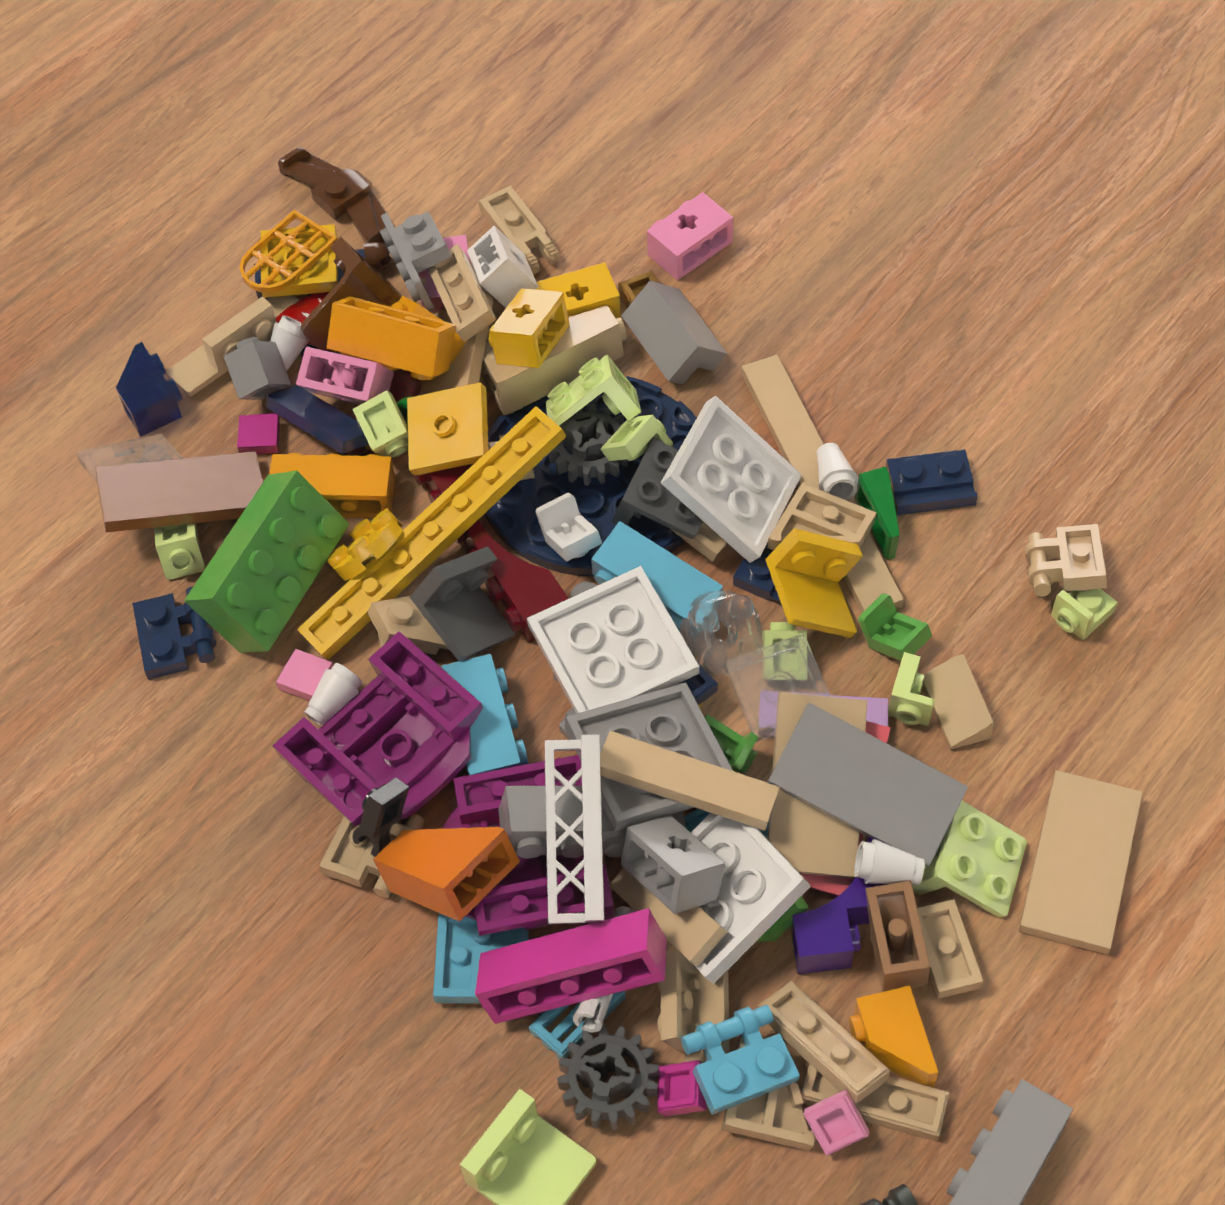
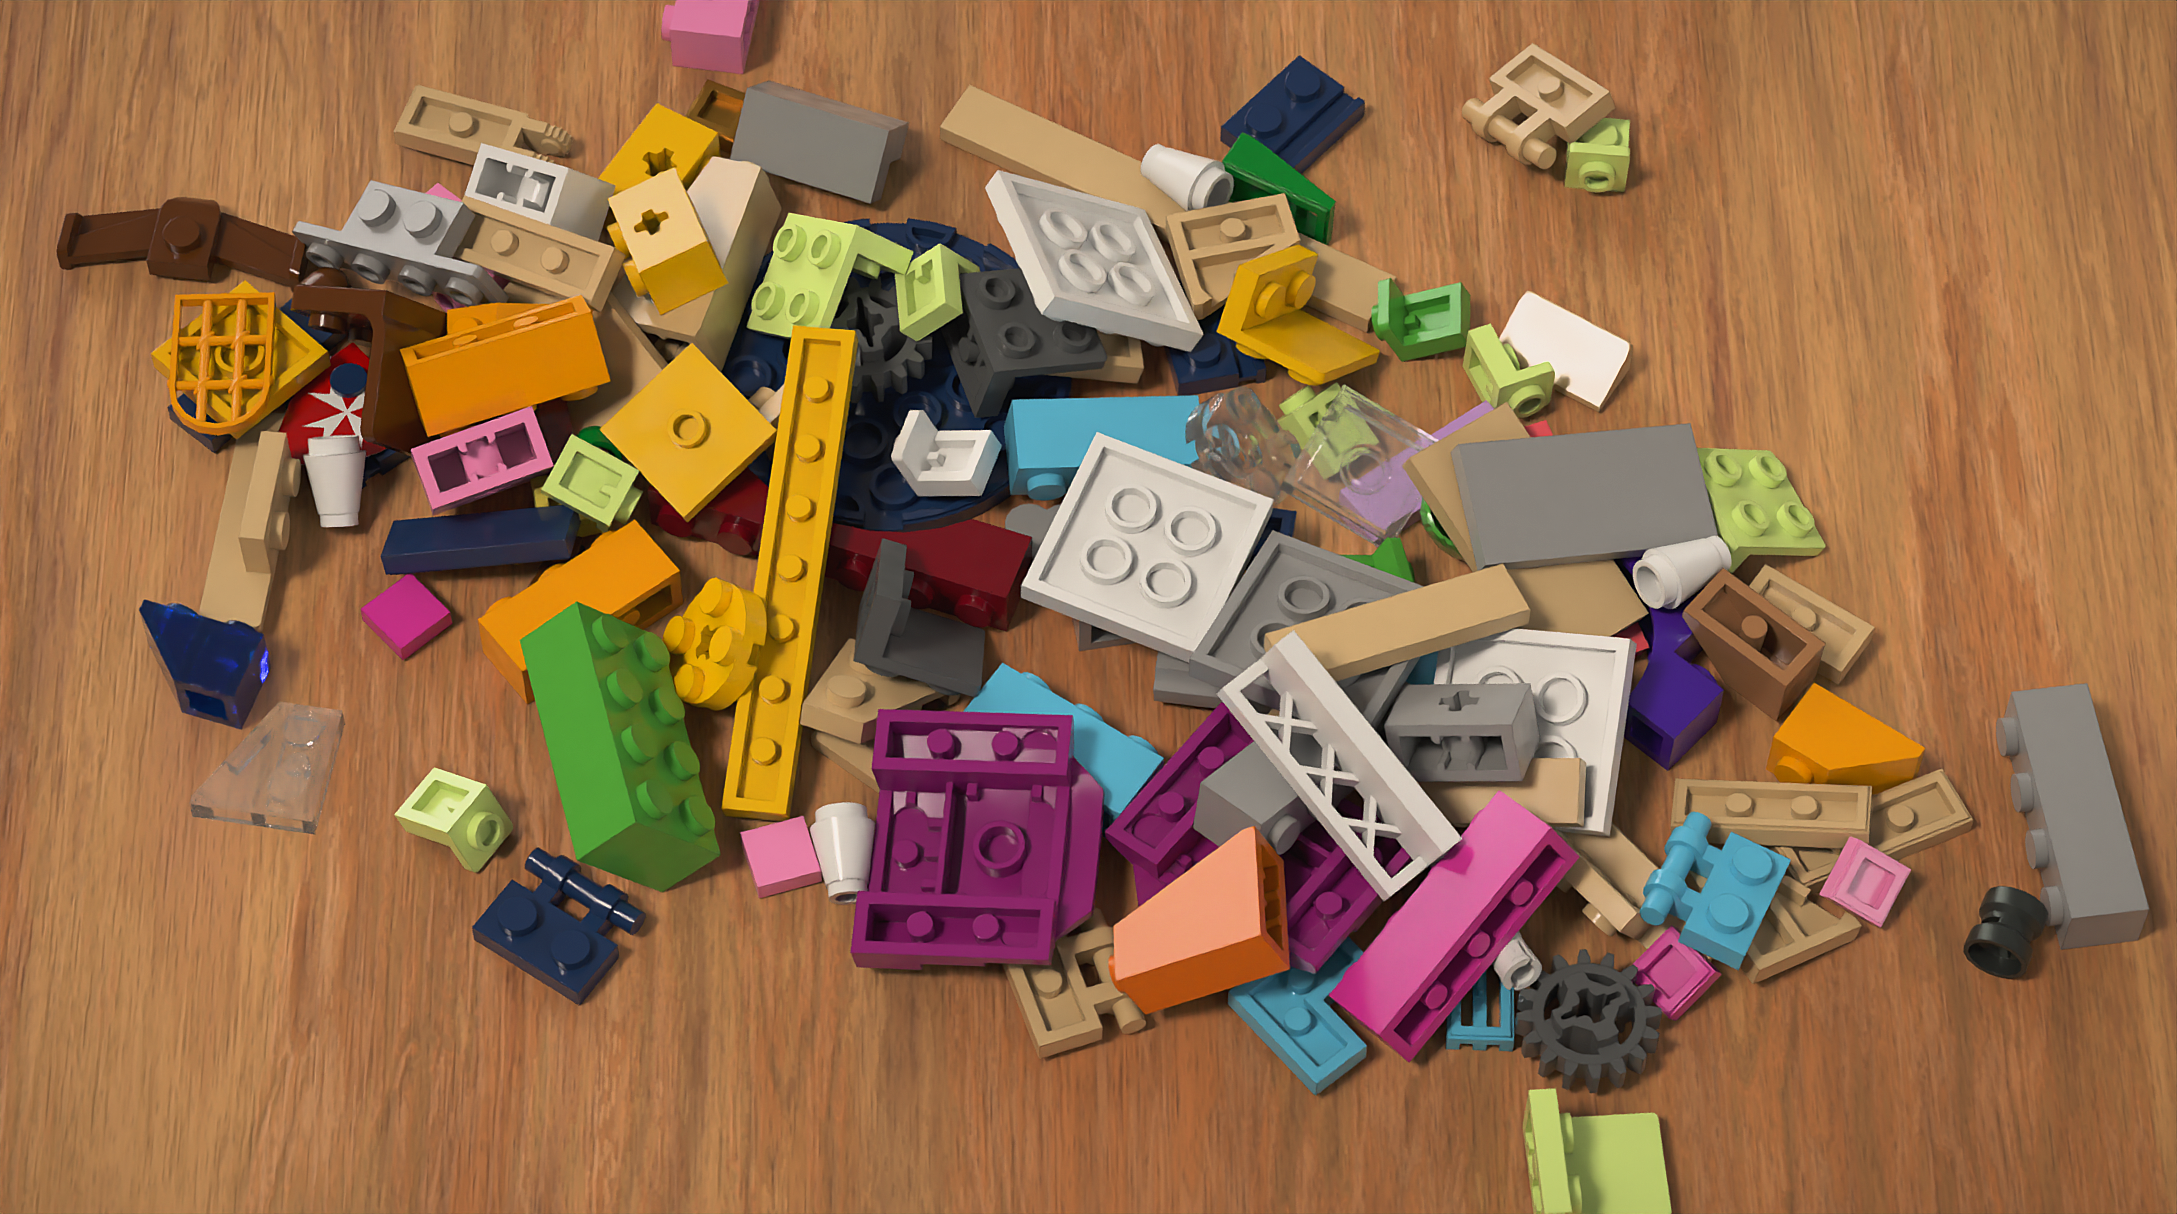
camera: 45 degrees left, 0 degrees up
(177, 491) = (398, 748): tile -> none
(256, 369) = (336, 530): light grey brick -> none
(381, 811) = (1077, 914): black plate -> none
(1081, 862) = (1848, 433): tan tile -> none

